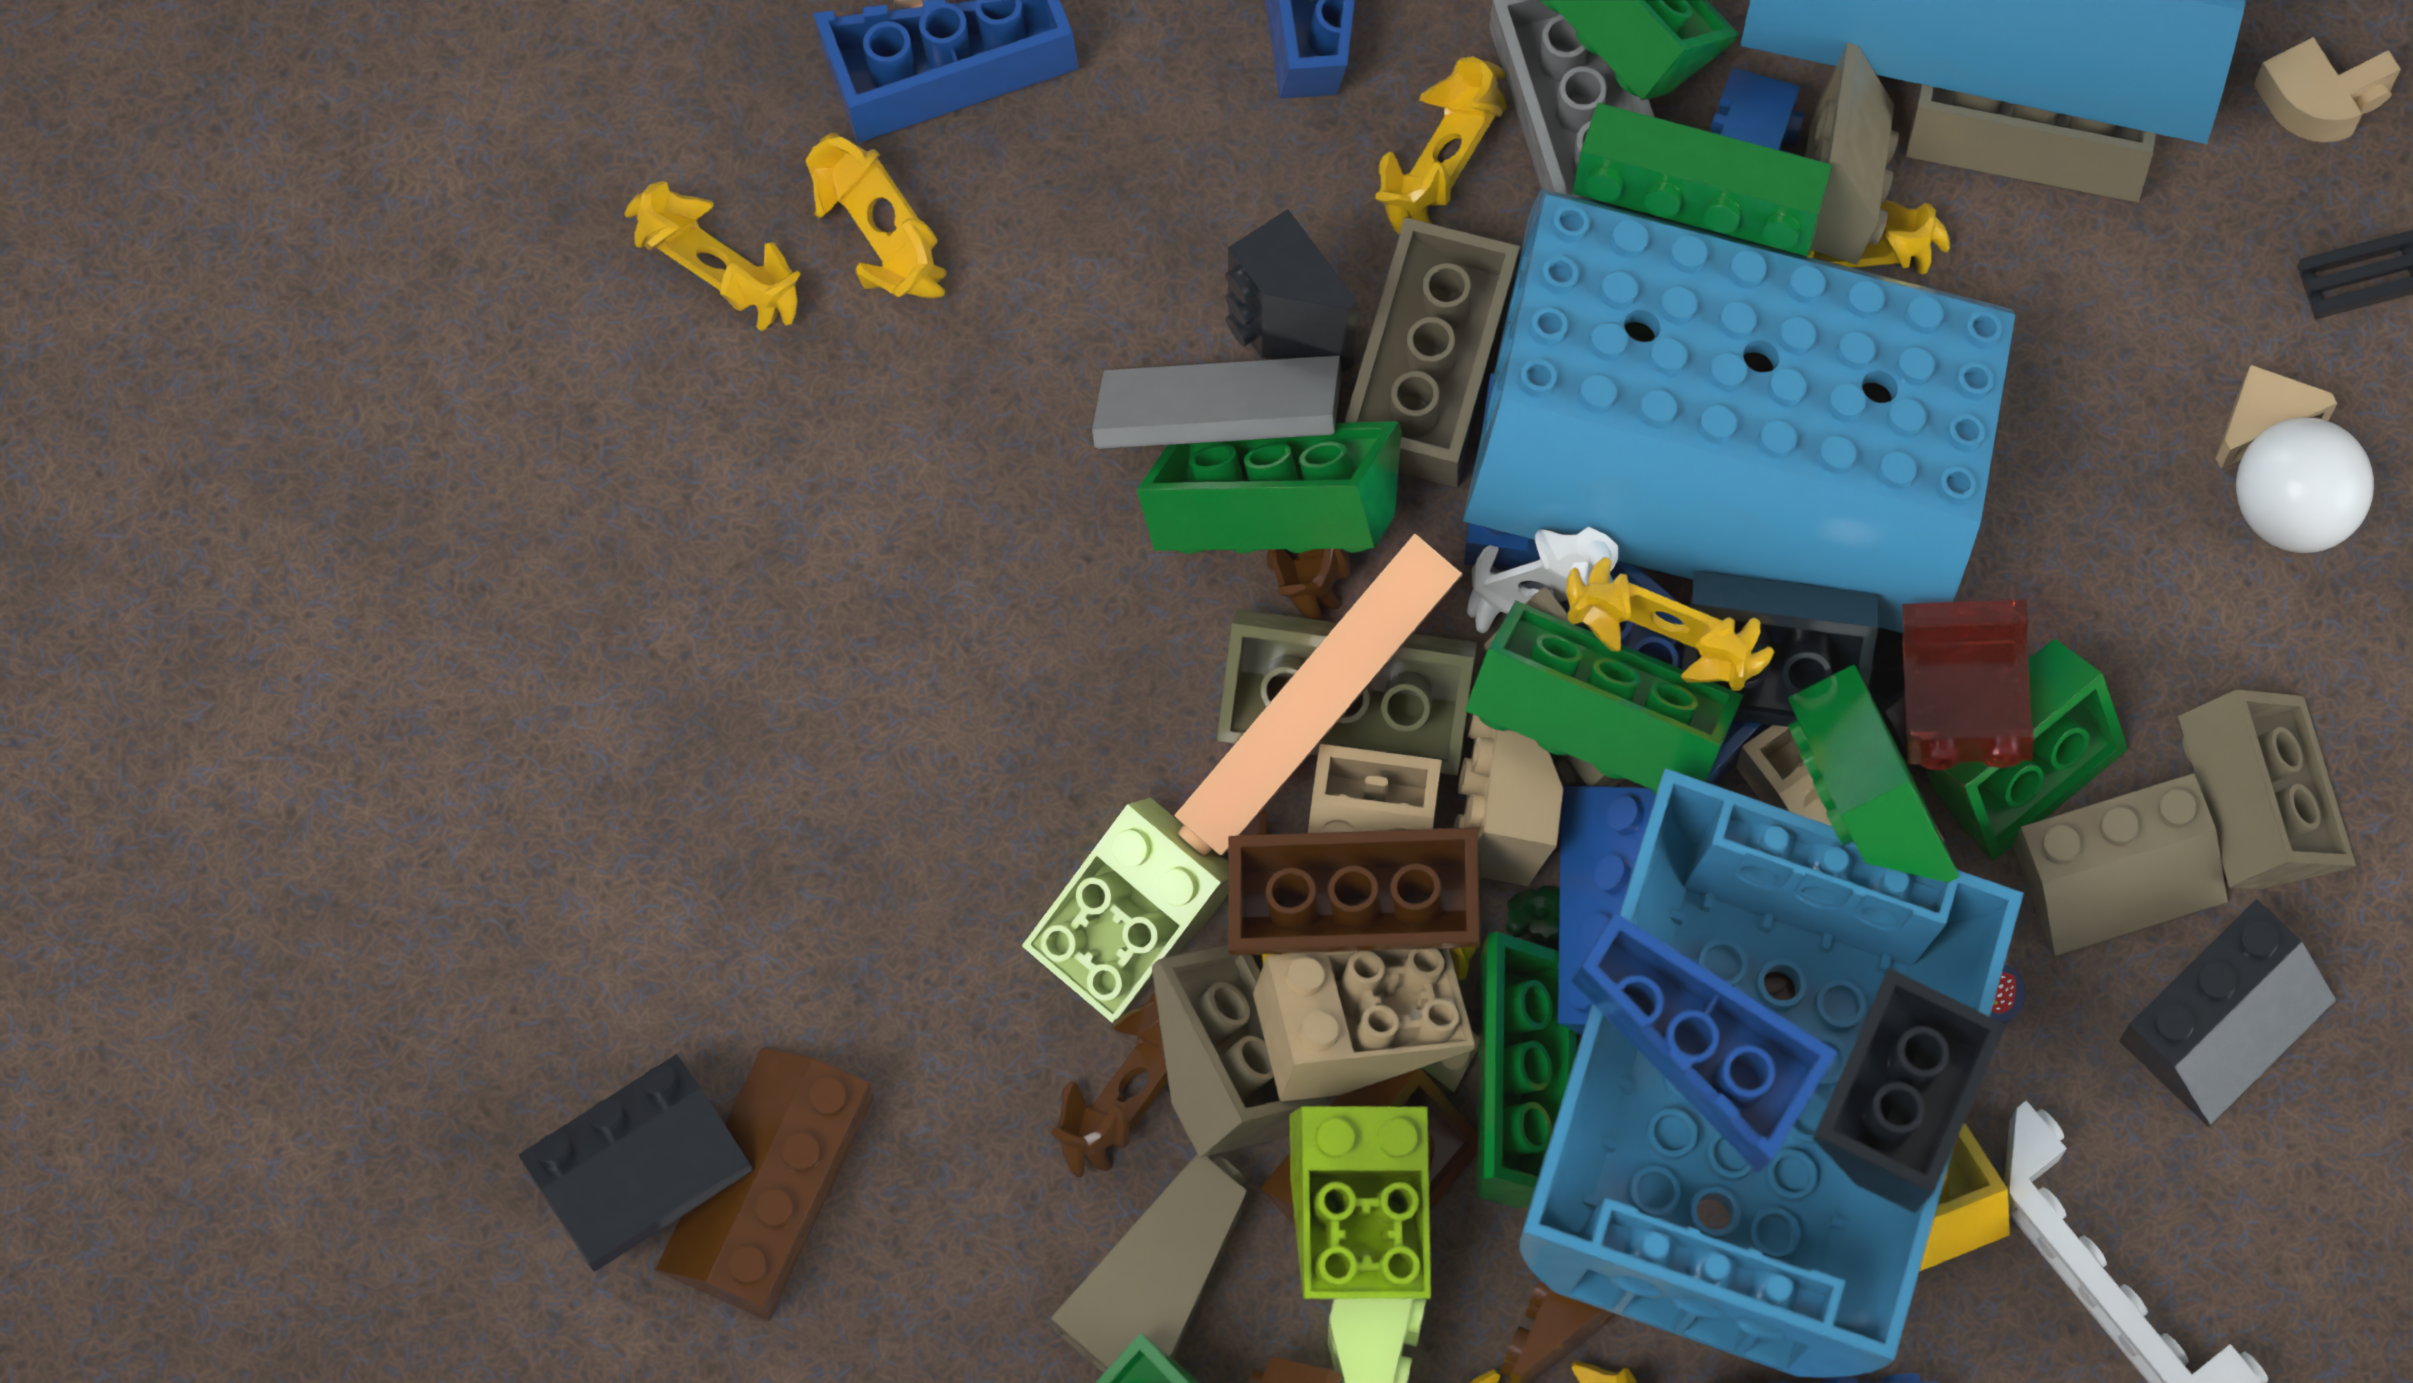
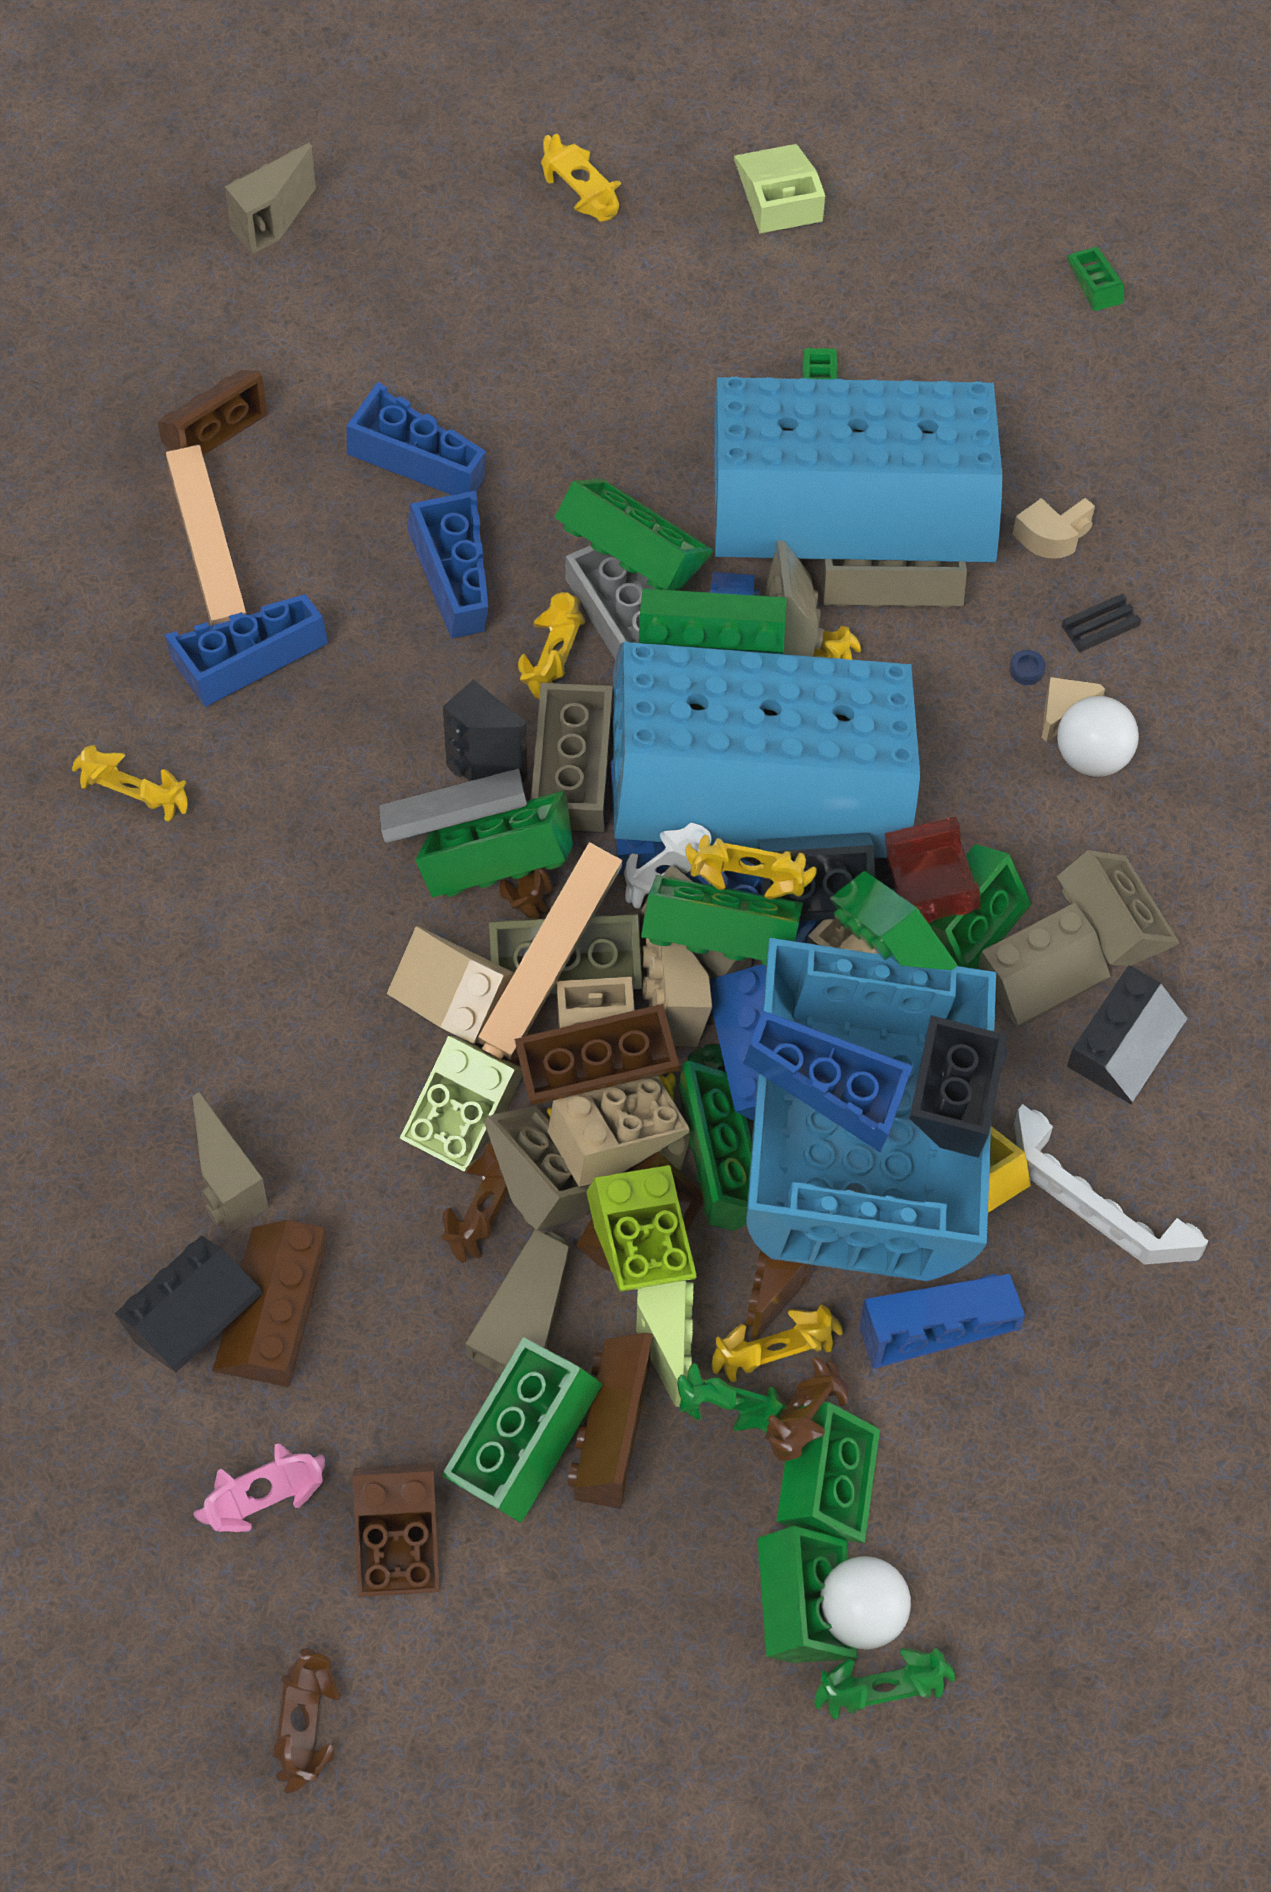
camera: 15 degrees left, 10 degrees down
(735, 974) = (230, 1180): none -> dark tan slope
(857, 180) = (208, 724): yellow piece -> none
(1150, 710) = (448, 984): none -> tan slope
(2220, 330) = (1027, 667): none -> dark blue tile

